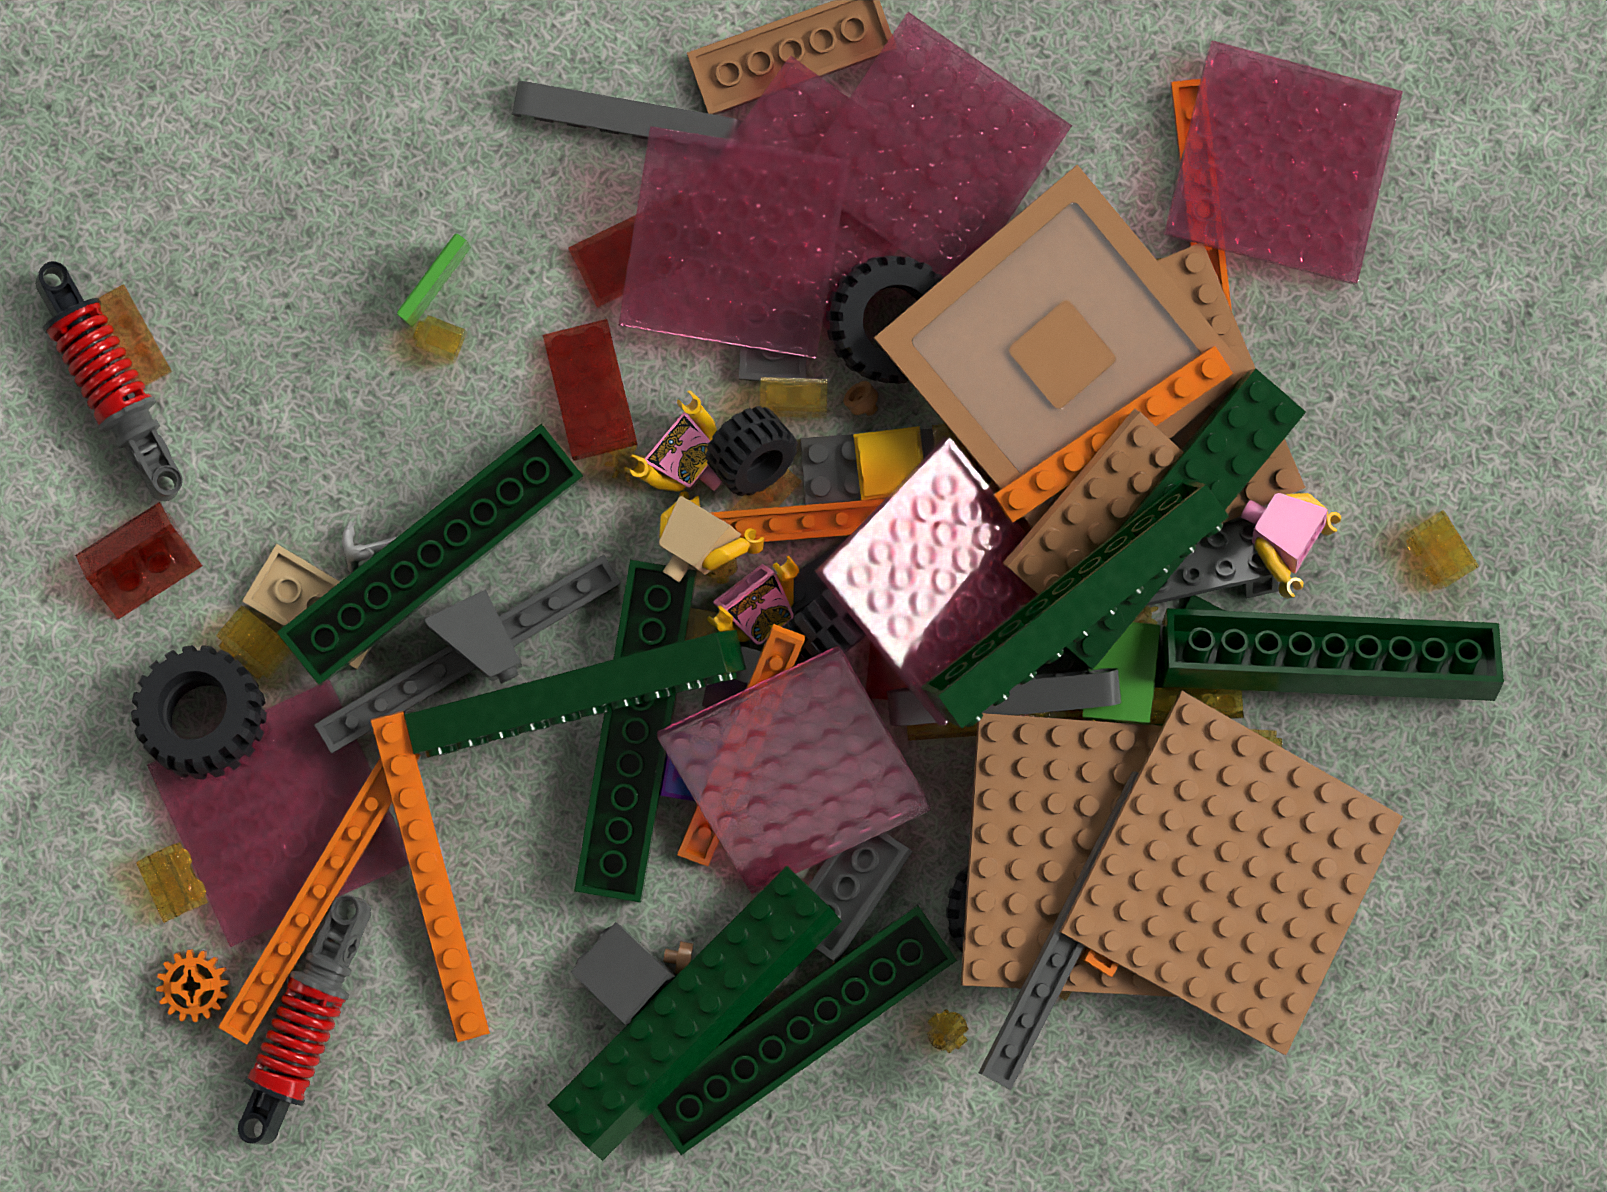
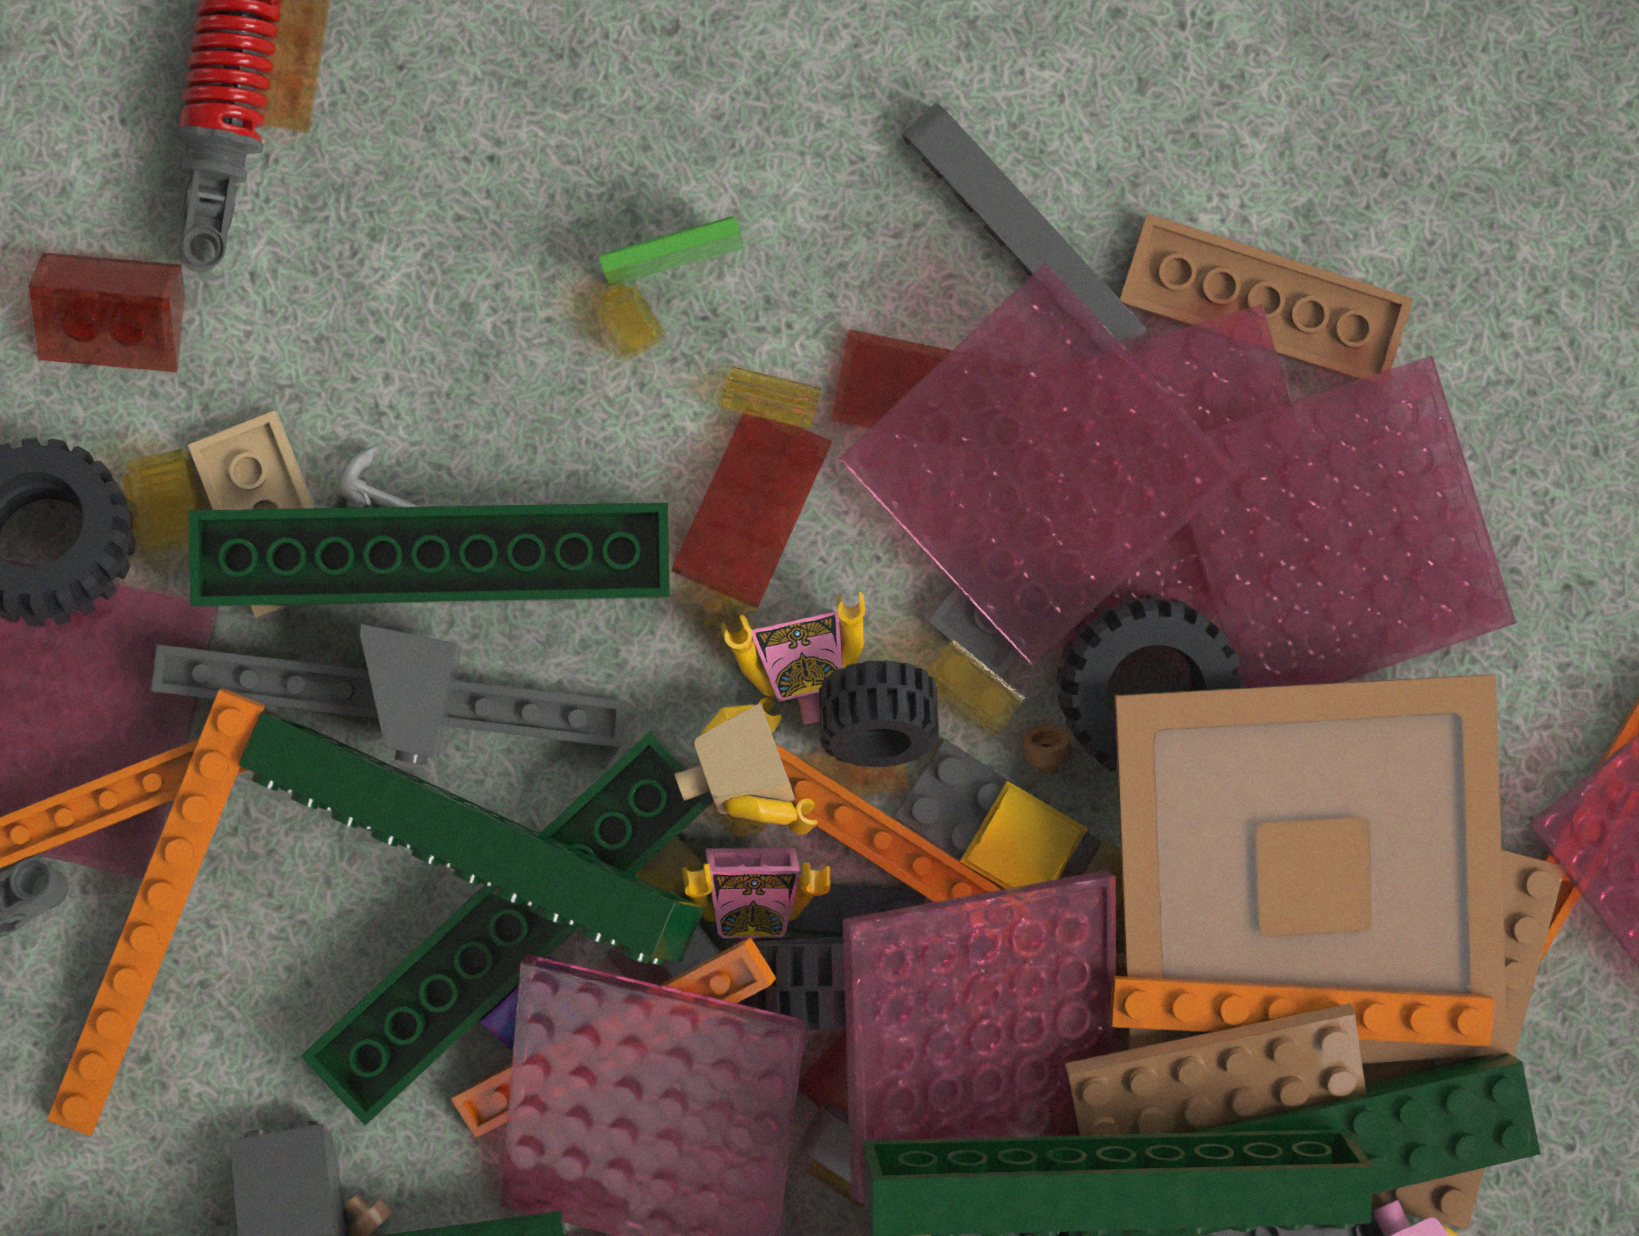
camera: 35 degrees right, 0 degrees up
(553, 320) = (771, 397): none -> clear yellow tile

